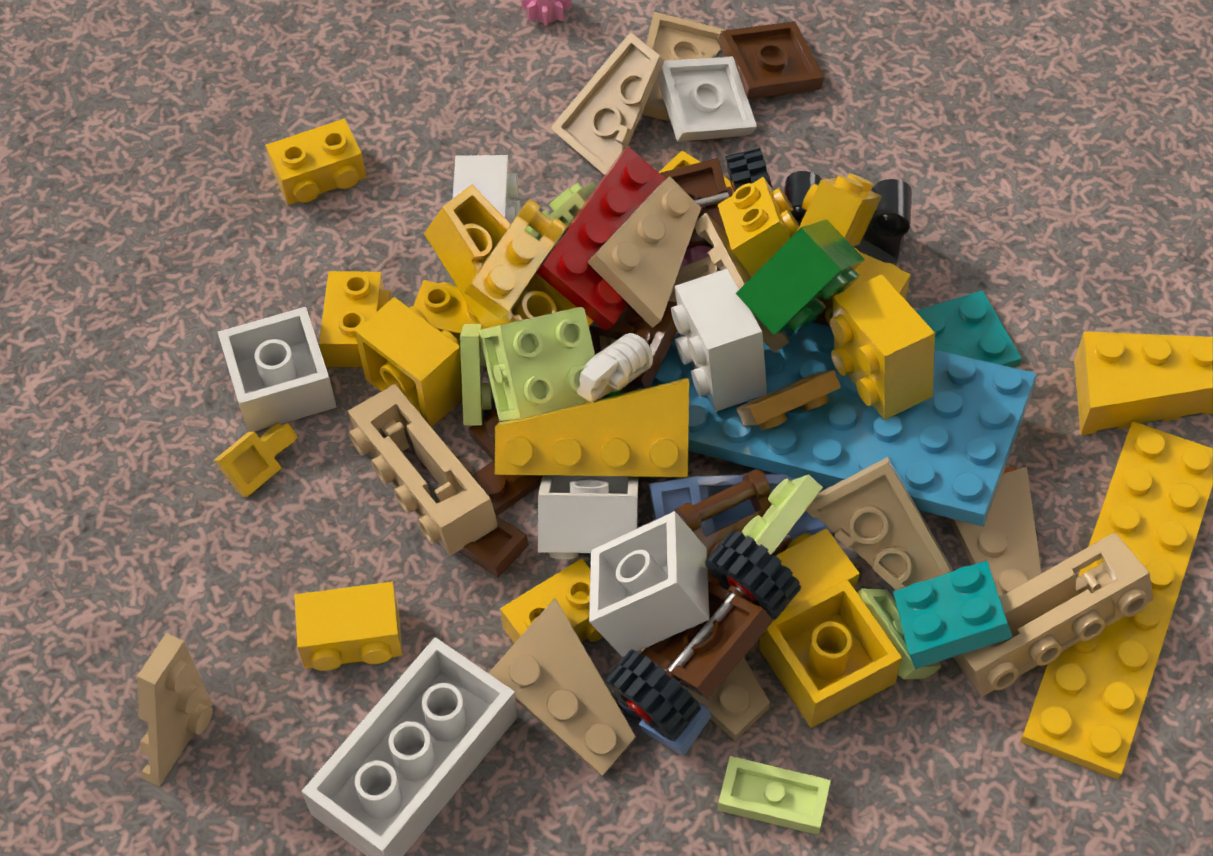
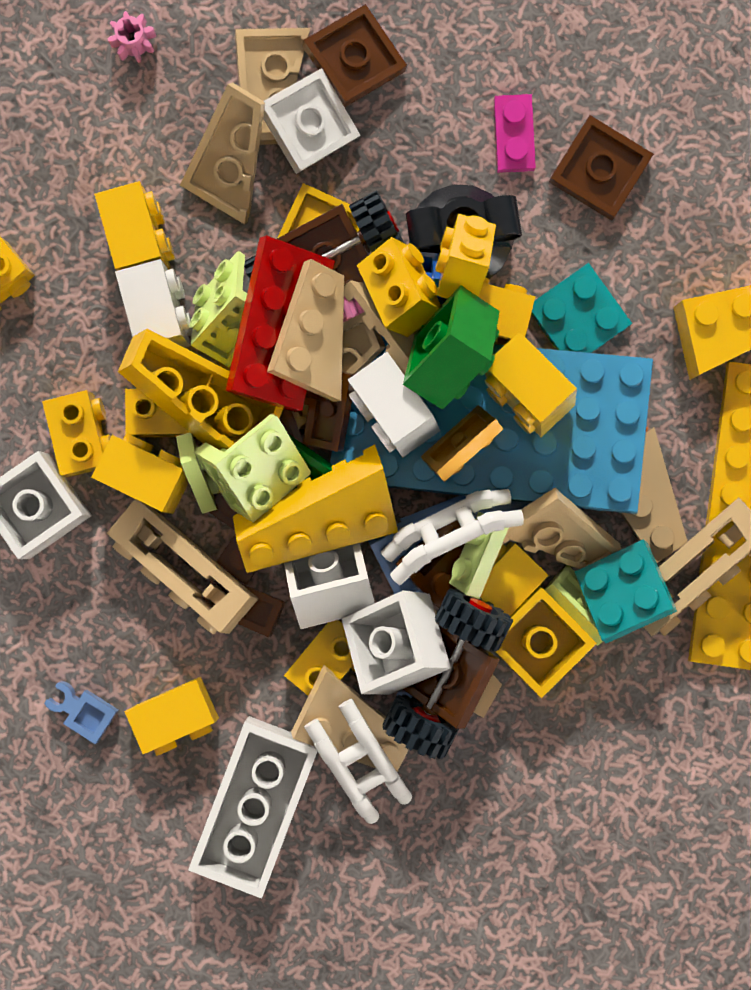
camera: 20 degrees left, 30 degrees up
(173, 705) = (66, 828): tan wing -> none
(245, 606) = (87, 714): none -> medium blue plate
(252, 459) = (44, 588): yellow plate -> none
(489, 125) = (132, 226): none -> yellow brick
(514, 260) = (206, 389): yellow plate -> none
(534, 713) = (365, 746): none -> white piece
(615, 367) = (316, 457): white hinge -> none
(774, 795) = (522, 757): yellowish green plate -> none
(784, 464) = (437, 545): none -> white piece
(927, 161) = (514, 133): none -> dark pink plate
(1015, 209) = (601, 167): none -> reddish brown plate

